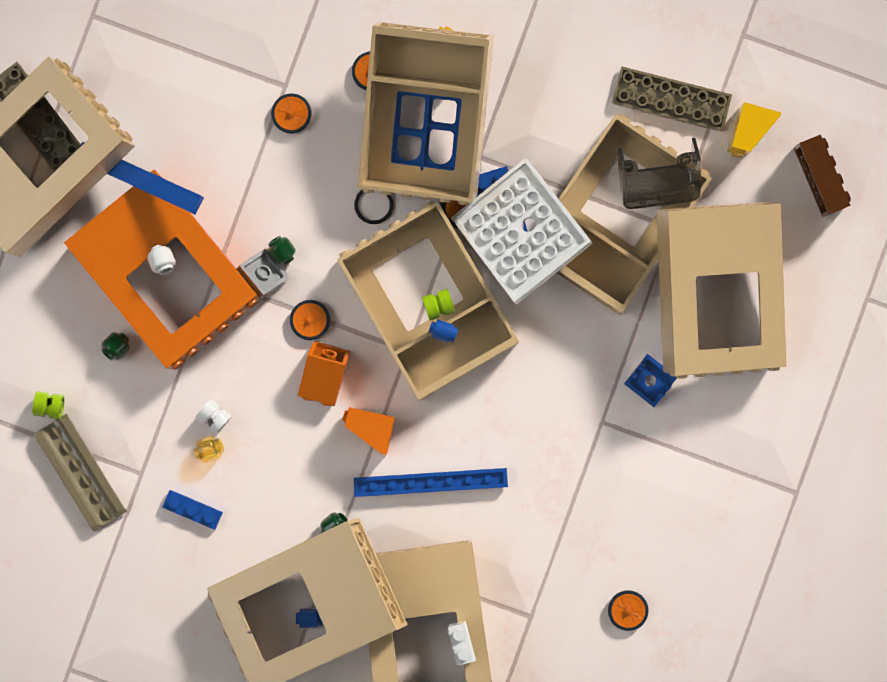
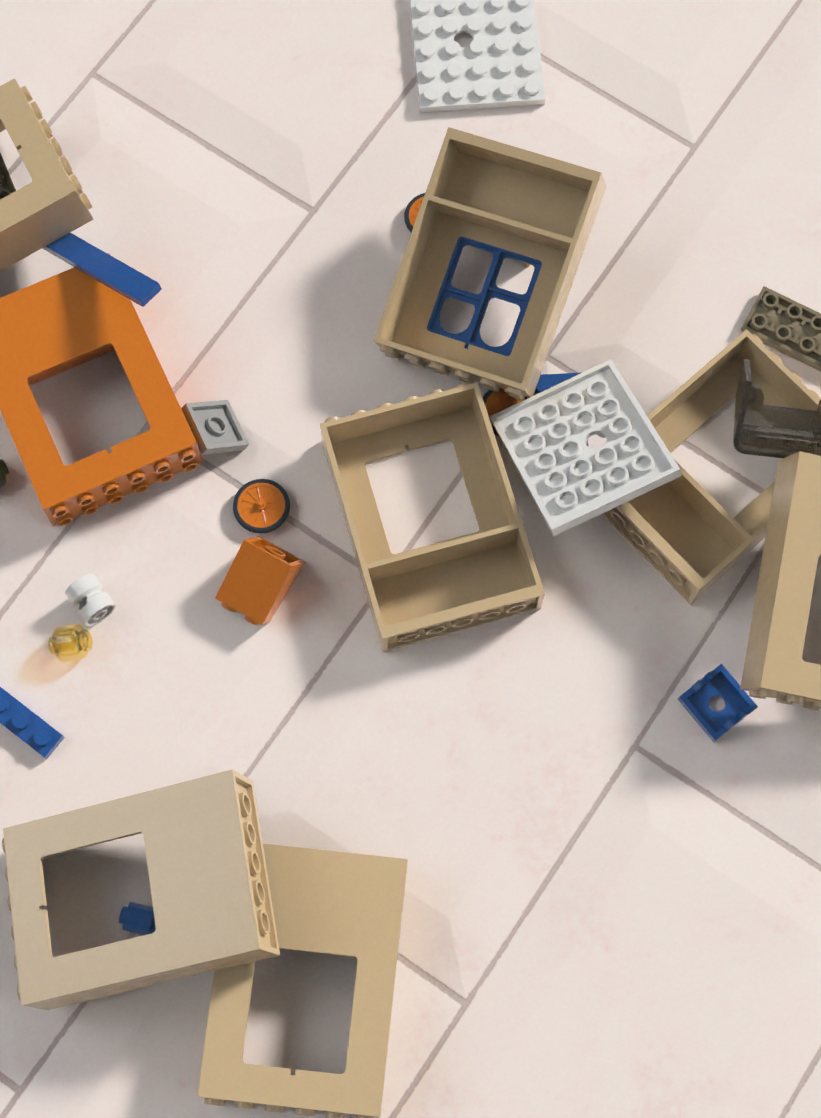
camera: 15 degrees right, 15 degrees down
(161, 259) = (81, 363): white head -> none
(281, 250) = (248, 405): dark green head -> none
(291, 113) = (311, 242): orange wheel -> none
(370, 427) = (305, 664): orange slope -> none
(372, 221) = (386, 359): black piece -> none
(430, 482) = (369, 767): blue plate -> none
(438, 304) = (444, 511): lime wheel -> none
(443, 331) = (441, 549): blue brick -> none
(461, 643) = (353, 1004): white brick -> none
(628, 610) = (613, 1030): orange wheel -> none

